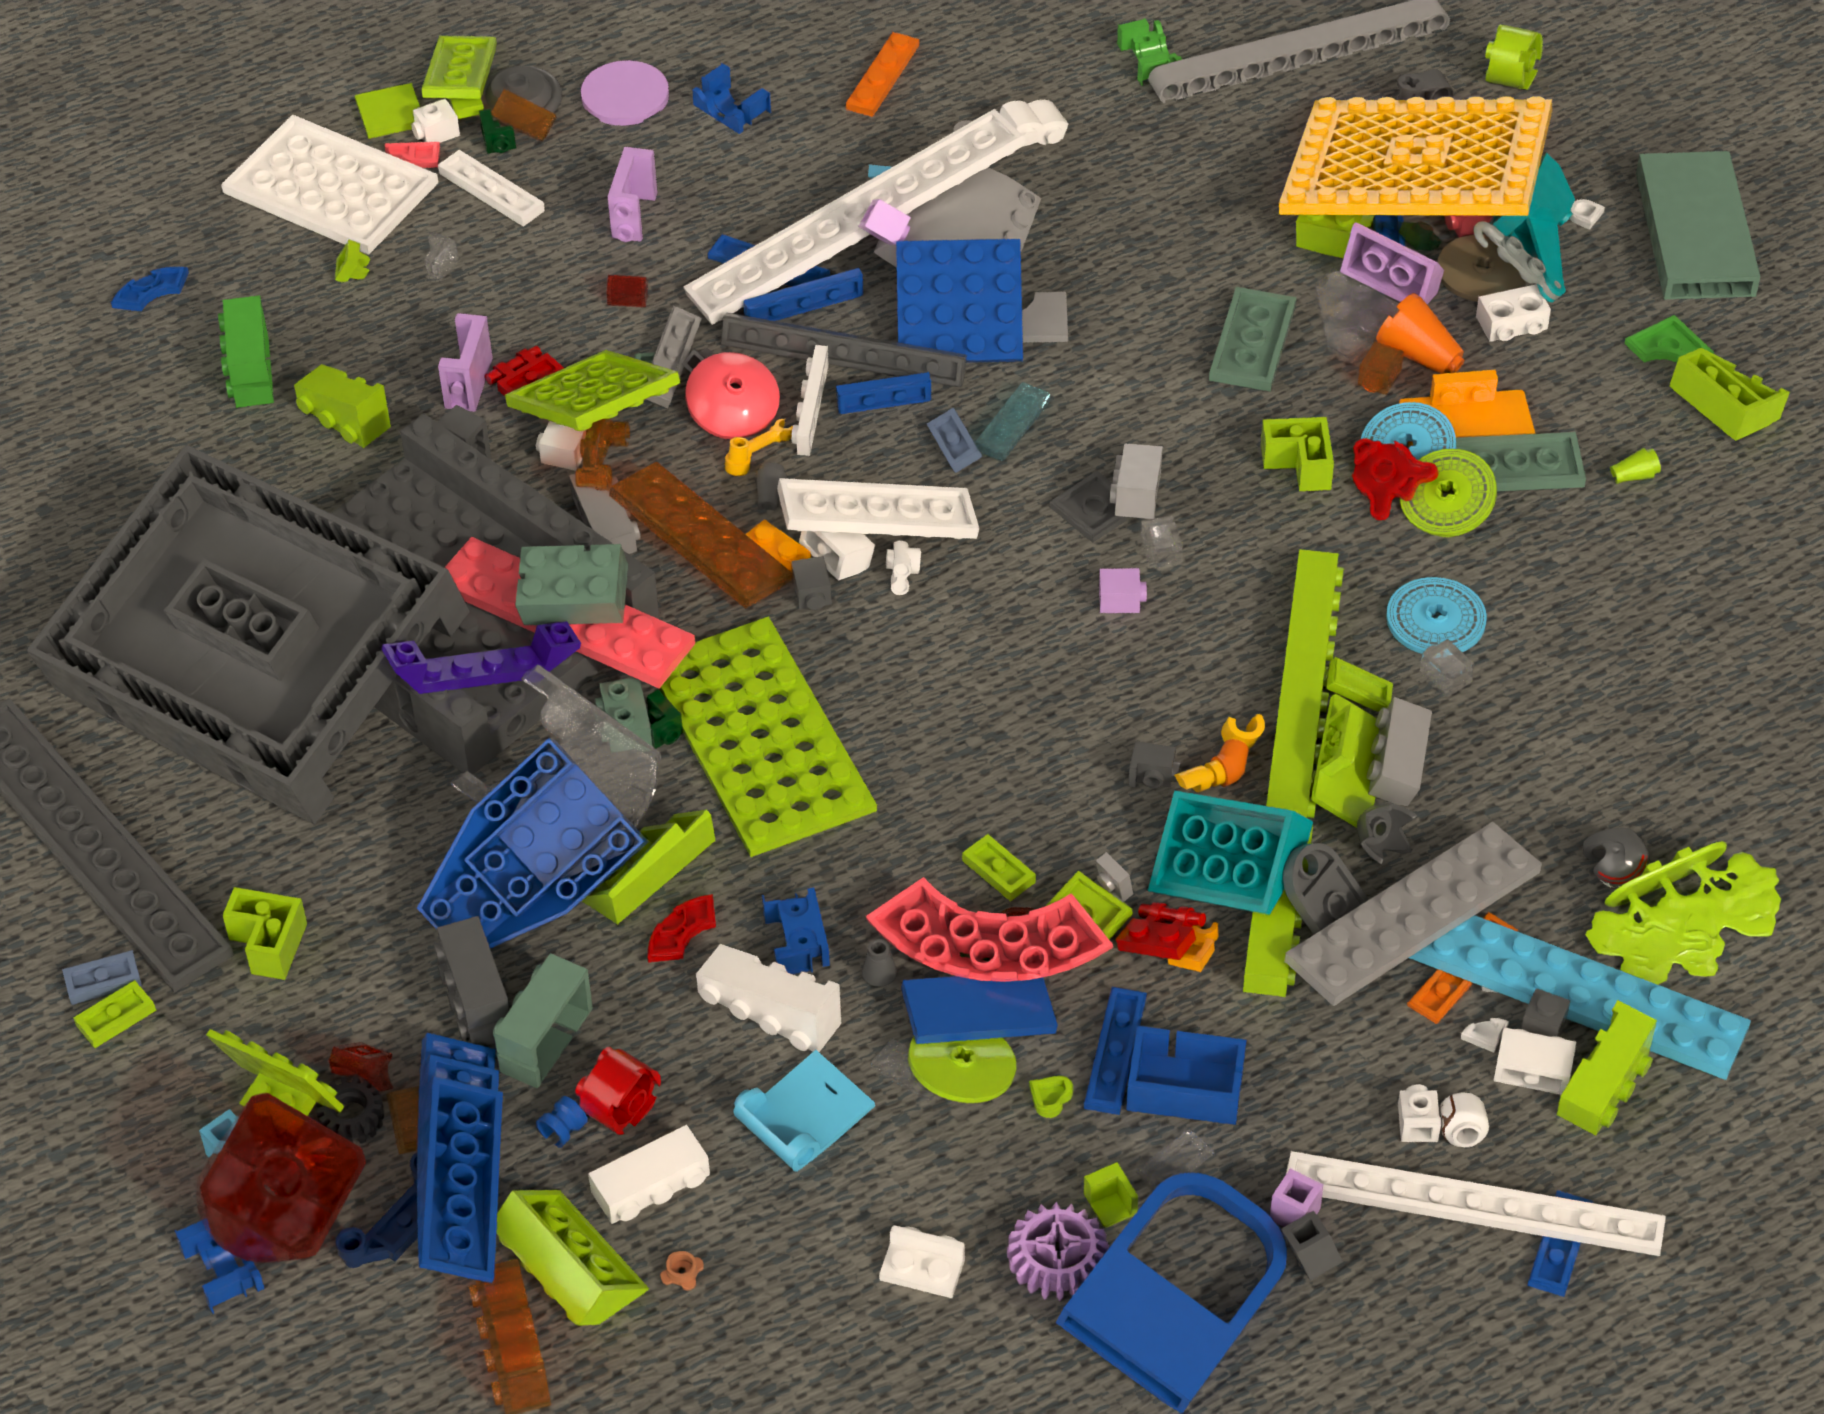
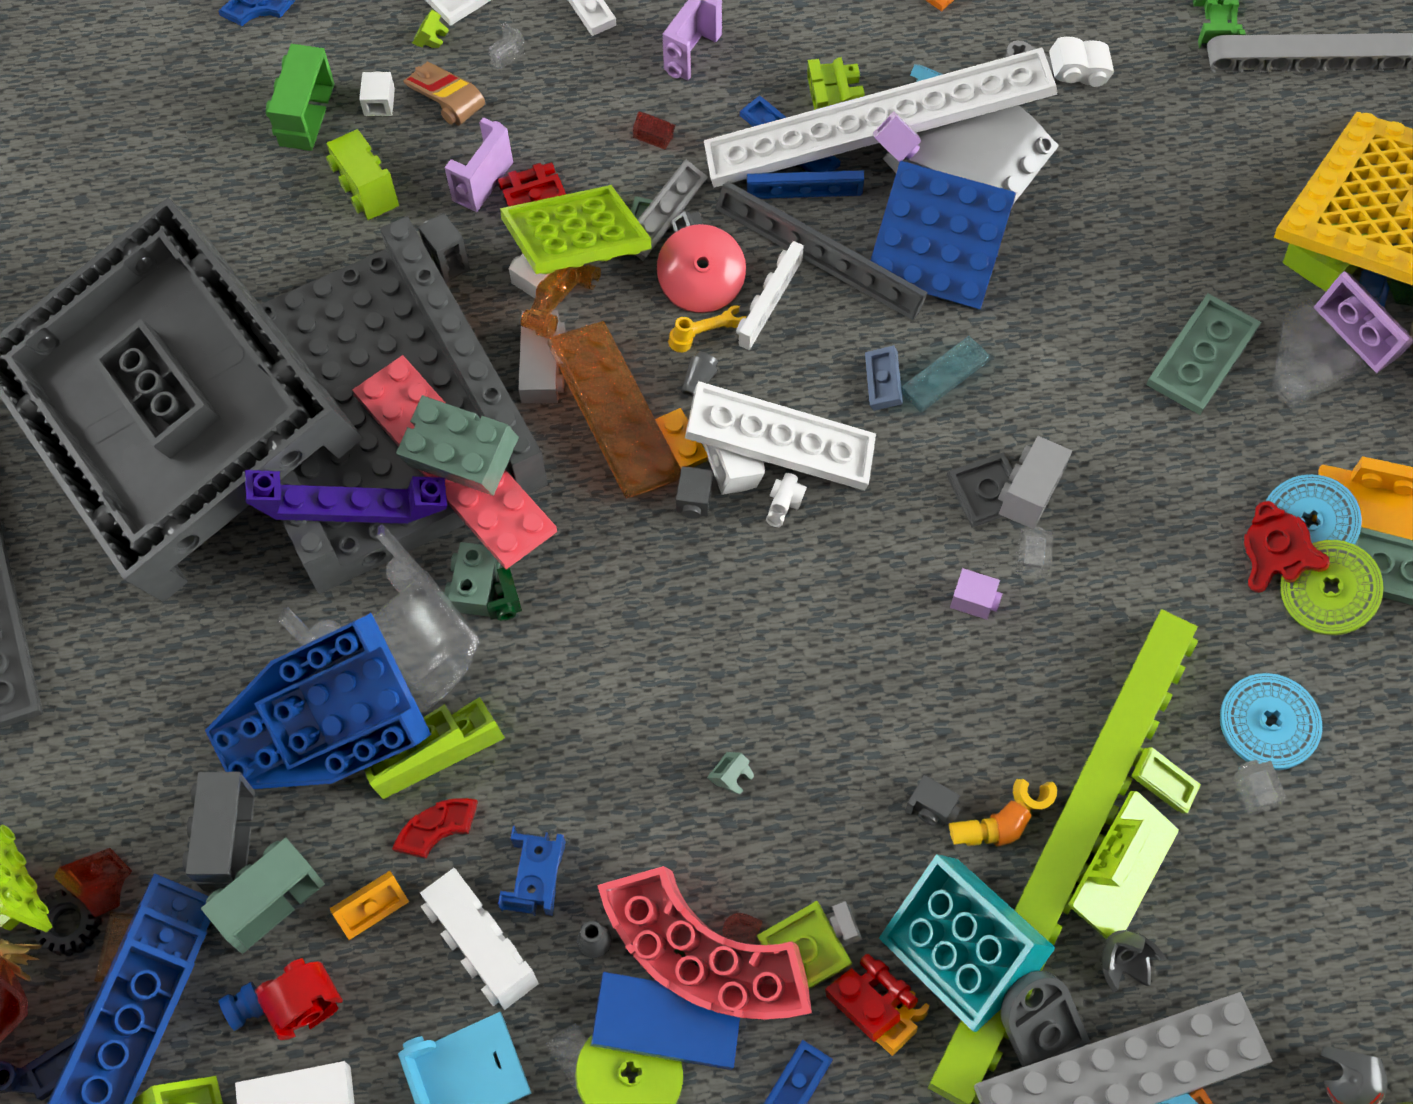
camera: 20 degrees right, 15 degrees up
(269, 926) = (77, 708): lime brick -> none
(323, 331) = (377, 93): none -> white brick
(409, 312) = (455, 95): none -> medium nougat door
(648, 1005) = (369, 905): none -> light orange plate
(790, 202) = (830, 82): none -> lime hips
(800, 704) = (638, 648): lime piece -> none
(883, 393) = (838, 307): blue tile -> none
(948, 798) = (729, 769): none -> sand green tile
(999, 867) = (747, 865): lime plate -> none
(1046, 318) = (1017, 271): light grey tile -> none
(1299, 445) = (1208, 490): lime brick -> none
(1380, 368) = (1314, 425): clear orange brick -> none
(1399, 752) = (1177, 872): light grey brick -> none
(1421, 336) = (1367, 405): orange cone -> none

